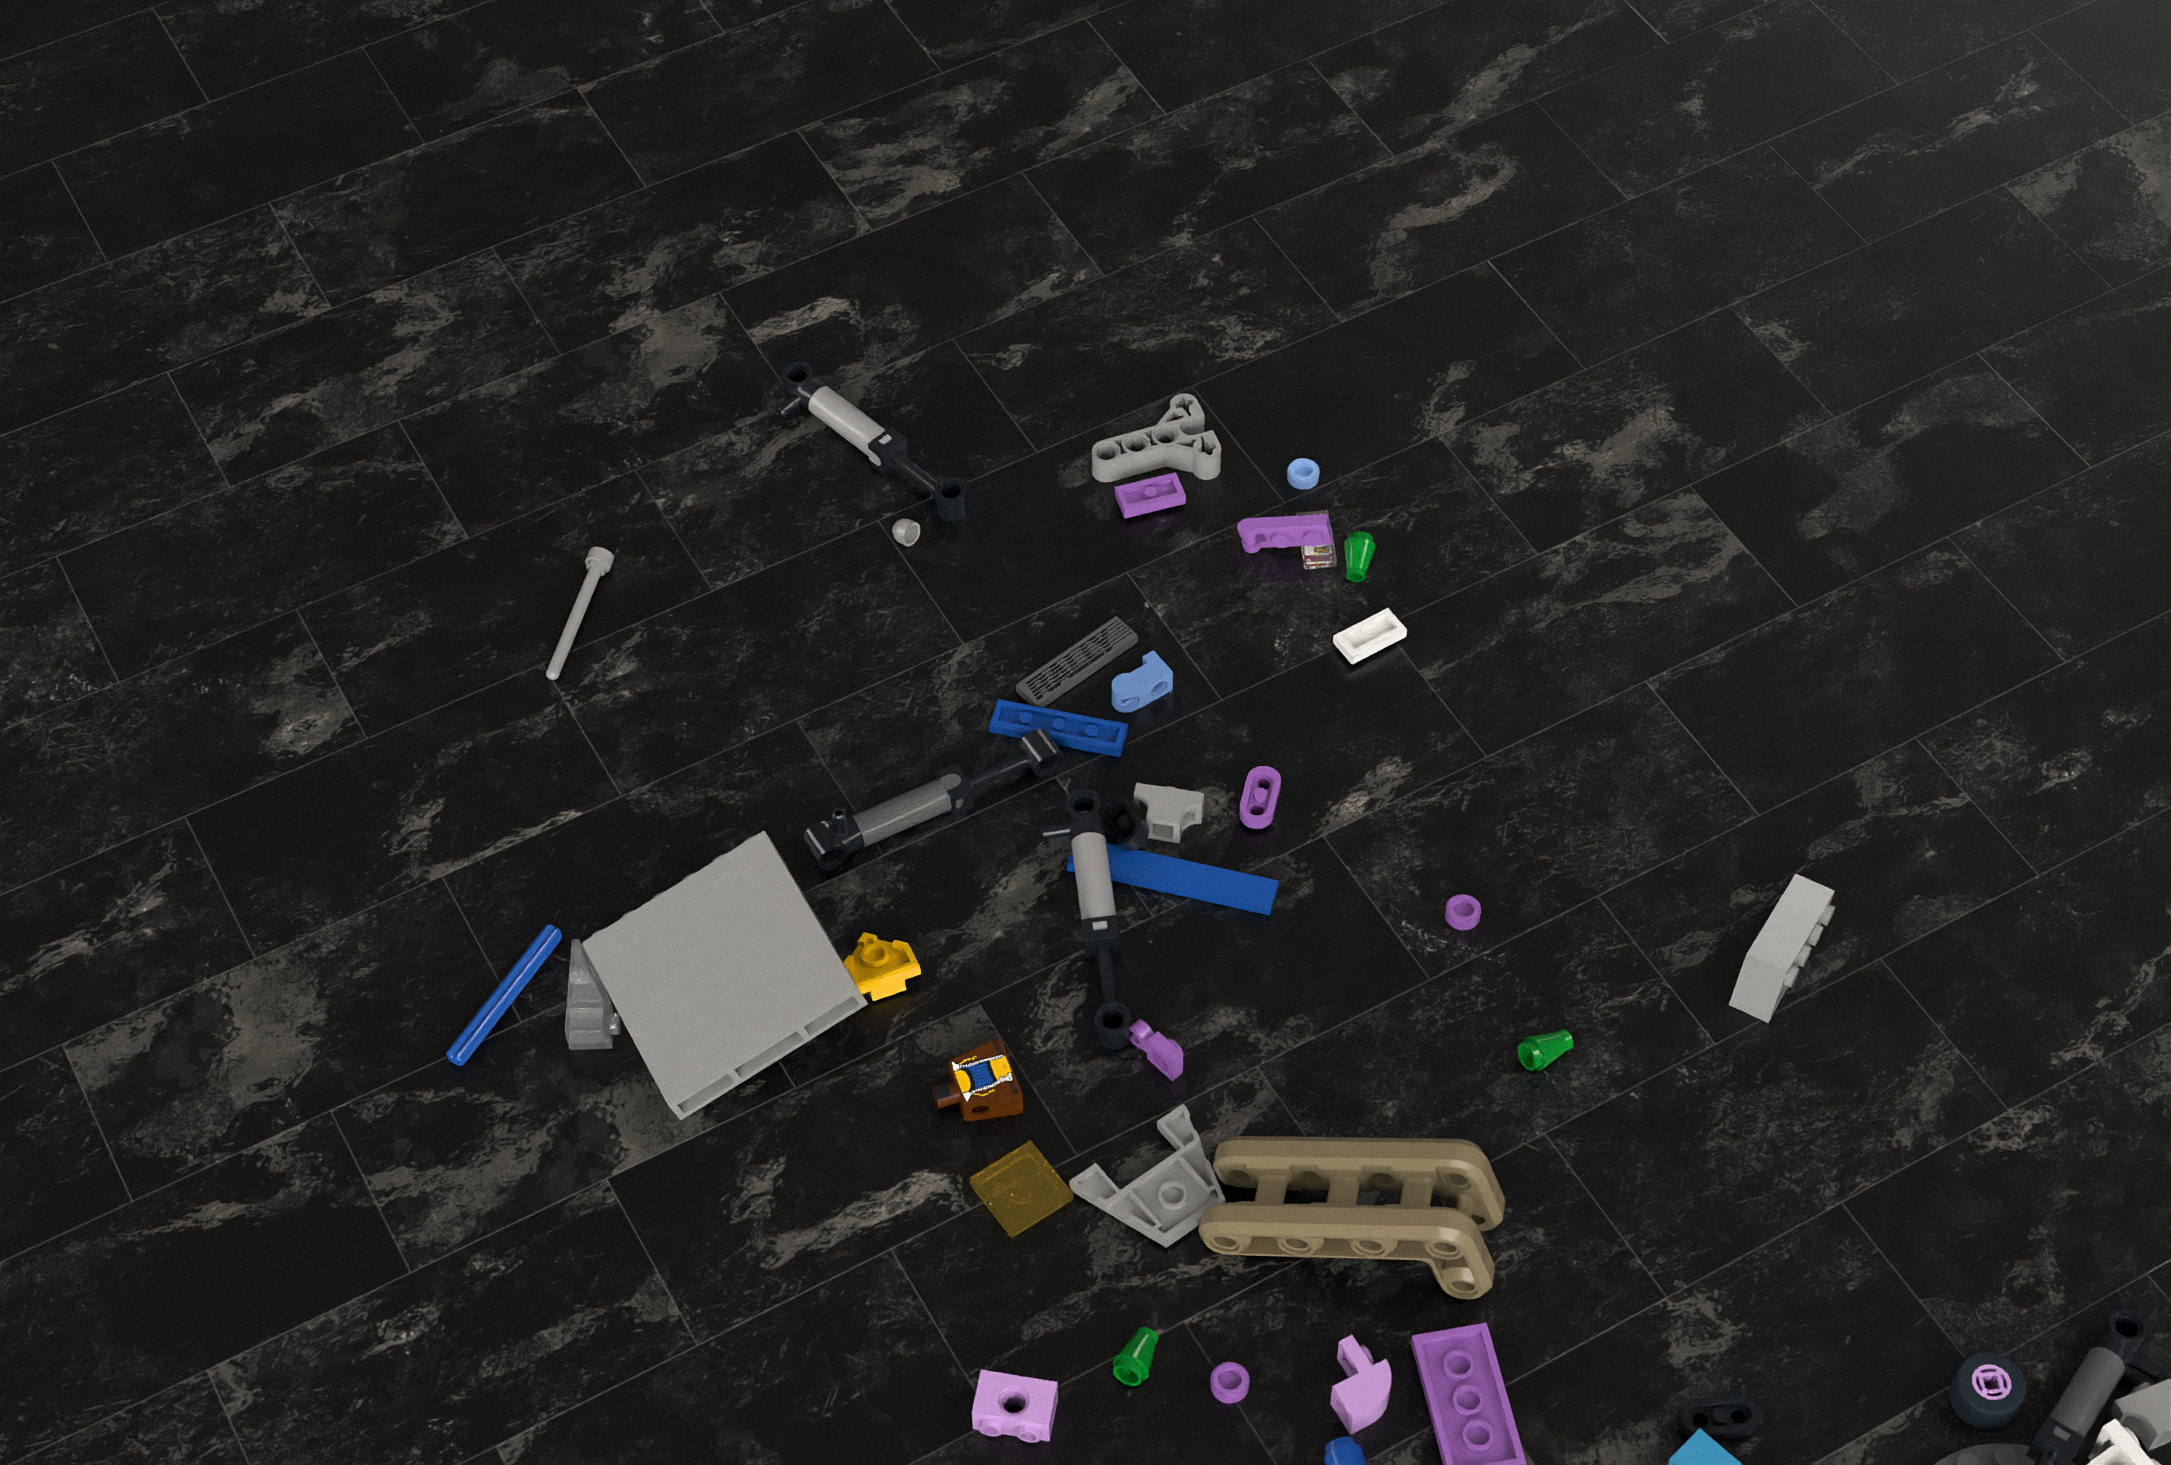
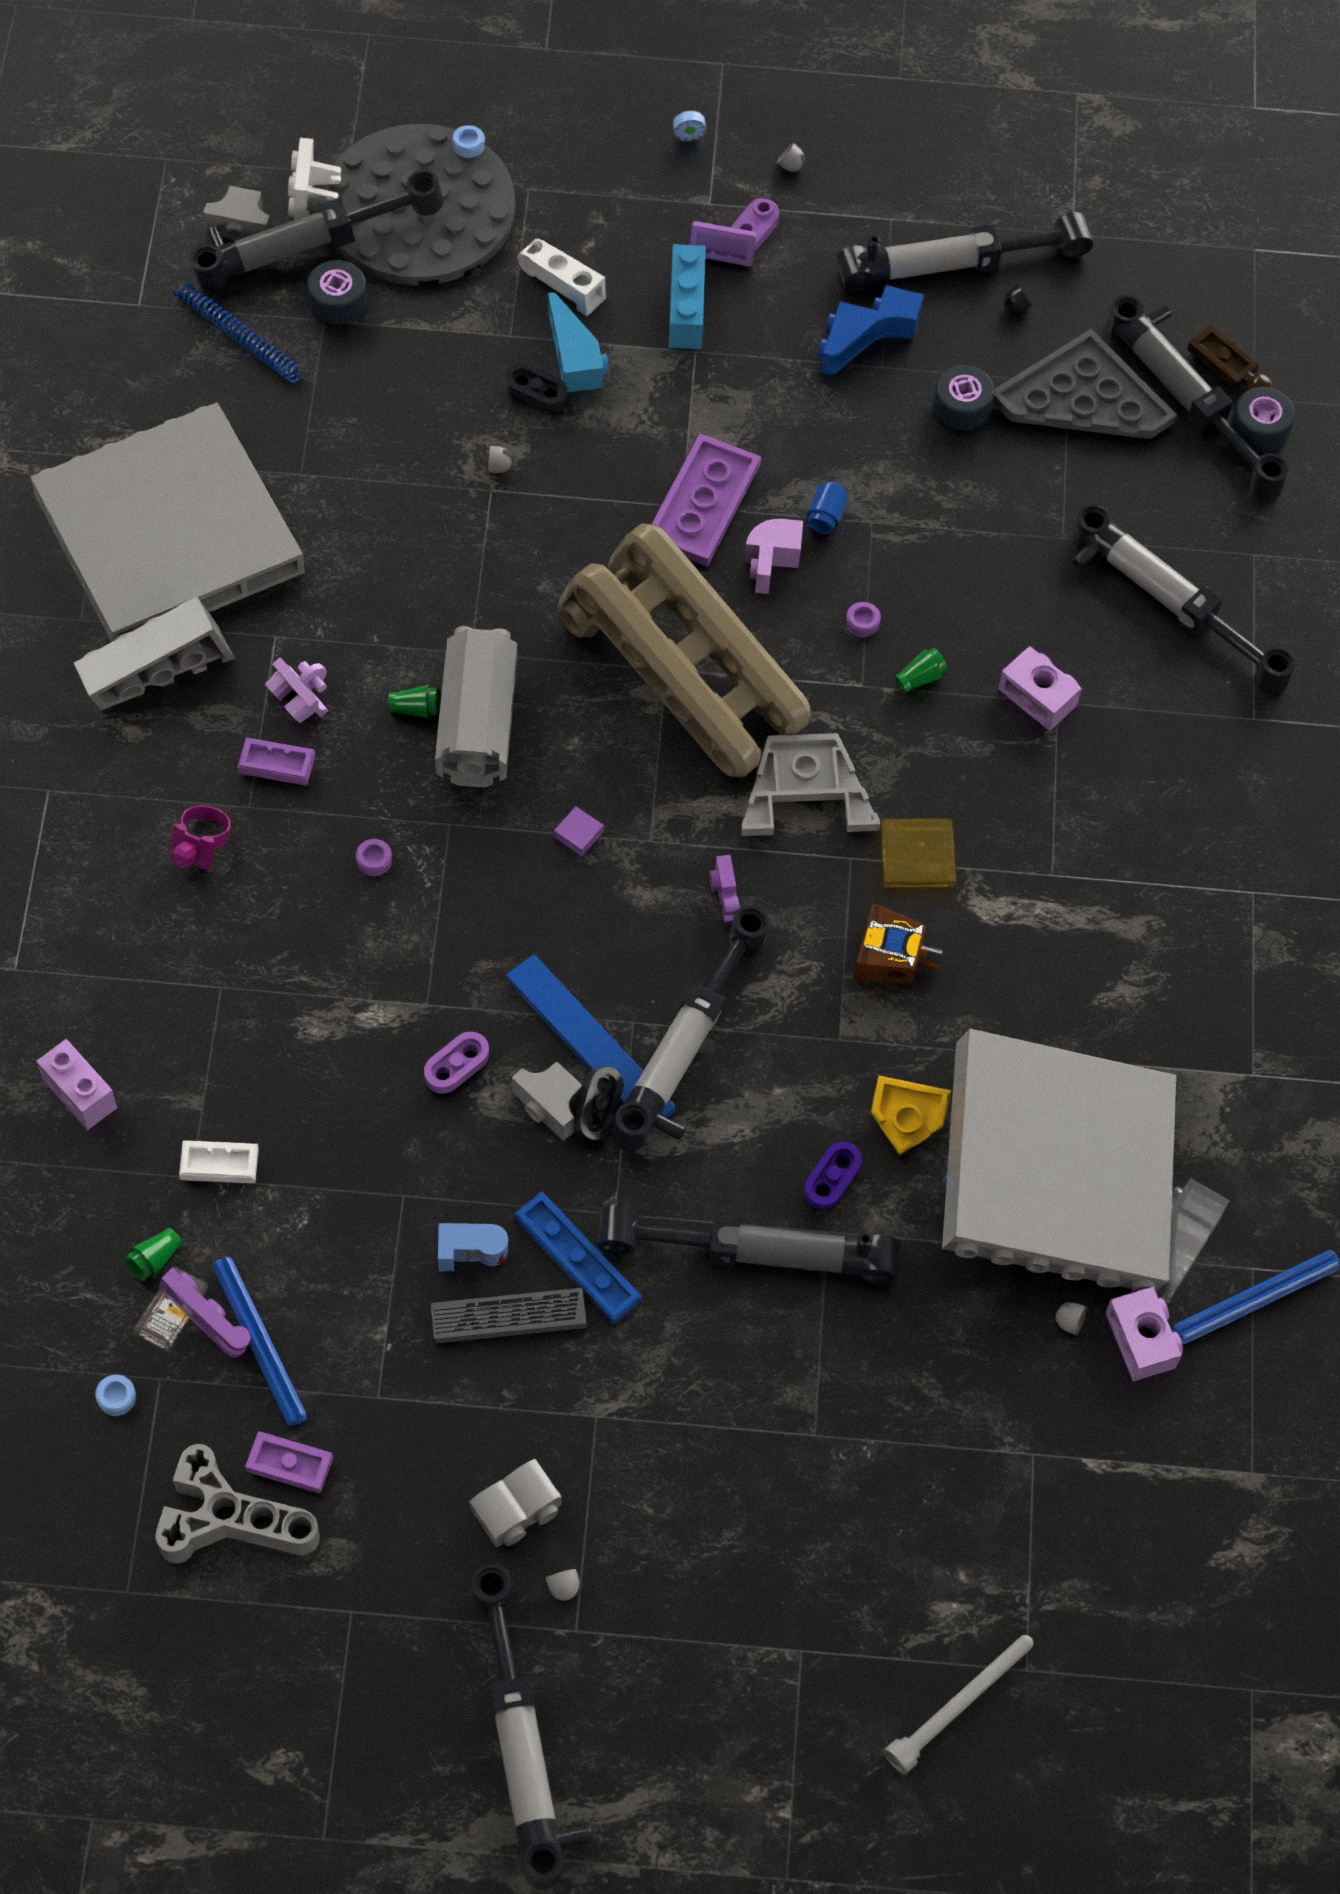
camera: 150 degrees left, 10 degrees up
(575, 893) = (1141, 1354): none -> lavender brick
(646, 890) = (1071, 1317): none -> light grey hinge
(905, 887) = (831, 1177): none -> dark purple plate
(974, 553) = (516, 1503): none -> light grey brick
(1237, 552) = (260, 1342): none -> blue axle
(1320, 1031) = (578, 831): none -> medium lavender tile
(1486, 1056) = (476, 706): none -> light grey brick
(1516, 619) = (77, 1084): none -> lavender brick
(1602, 811) = (195, 850): none -> magenta piece
(1607, 932) = (276, 761): none -> medium lavender plate
(1647, 997) = (306, 701): none -> lavender hips
(1685, 1317) = (499, 459): none -> light grey hinge
(1896, 1069) = (167, 521): none -> light grey brick
(2030, 1298) = (226, 330): none -> blue piece

